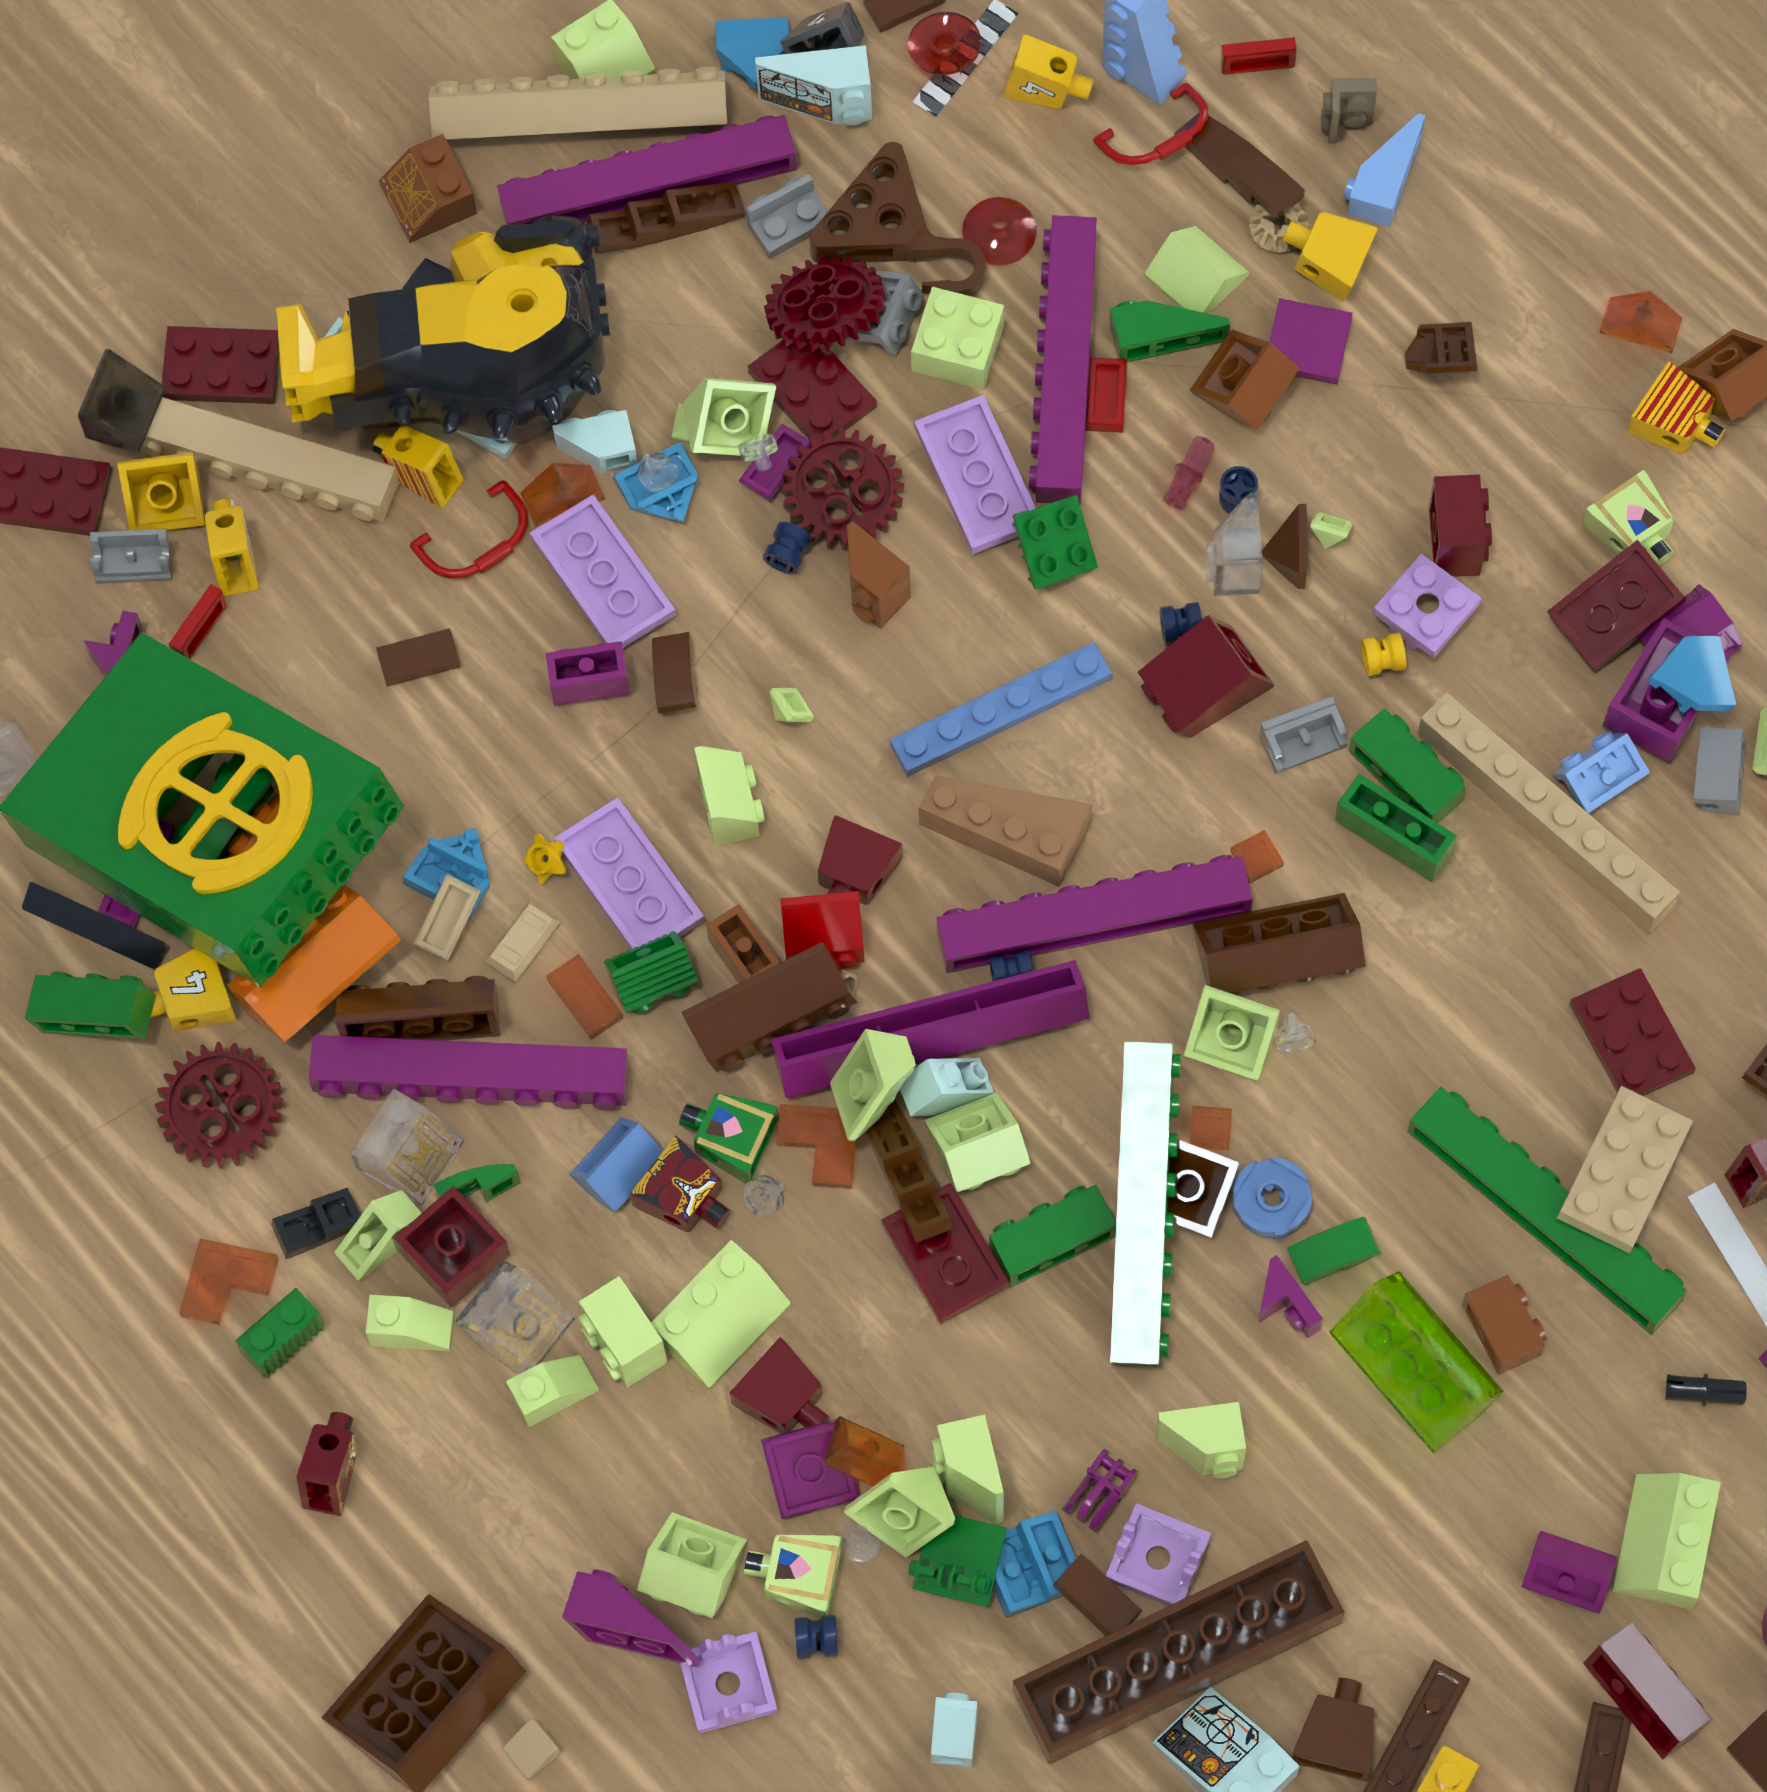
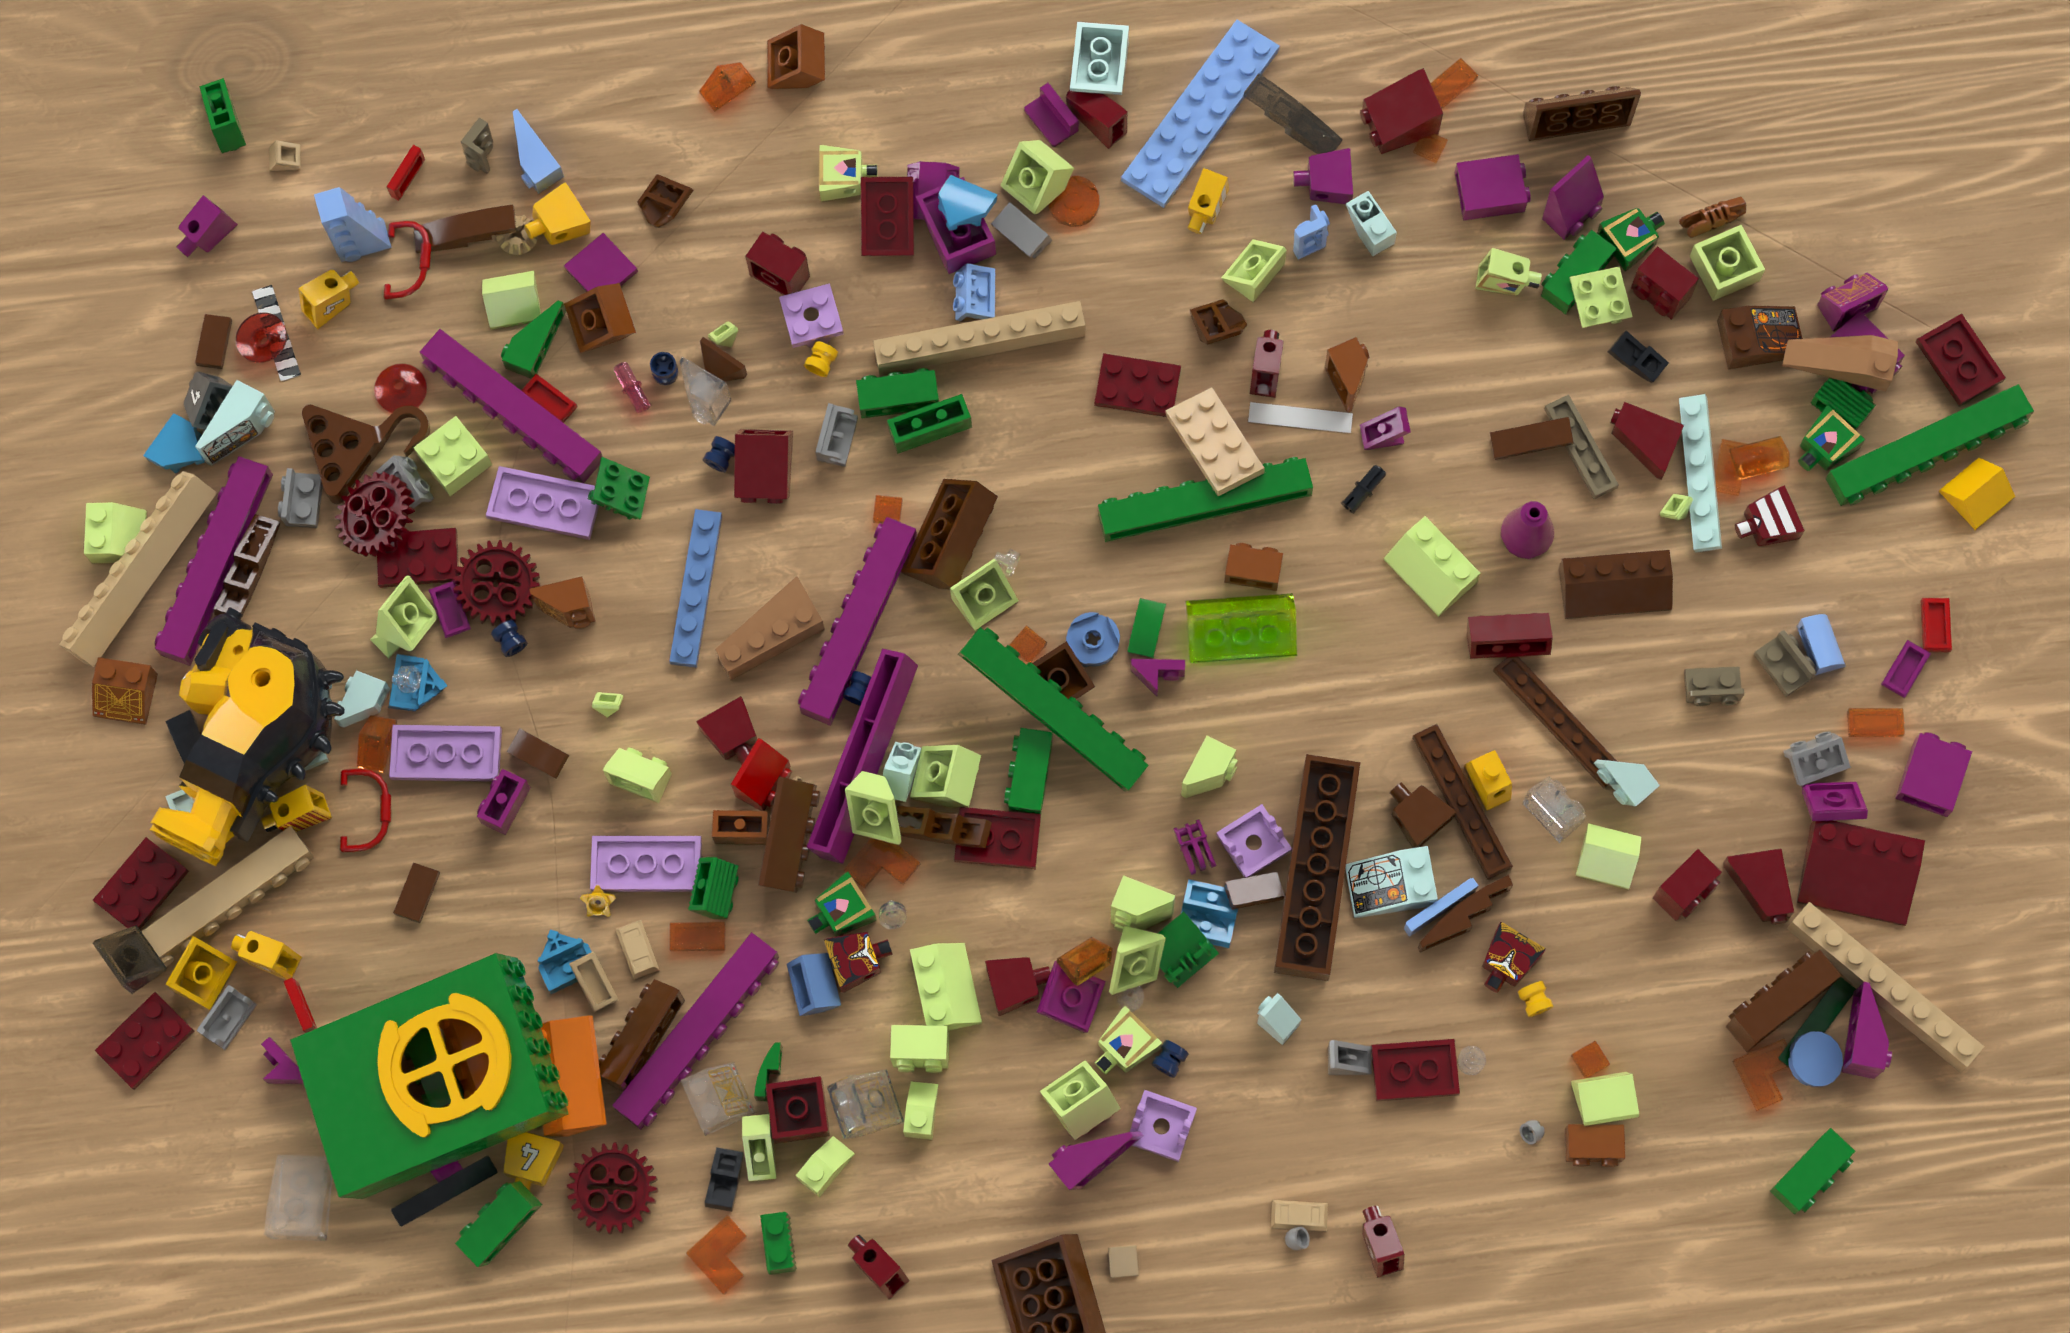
camera: 55 degrees left, 5 degrees up
(759, 450) = (438, 612): clear tile -> none
(1569, 1571) = (1414, 630): magenta panel -> none
(1675, 413) = (796, 105): yellow torso -> none

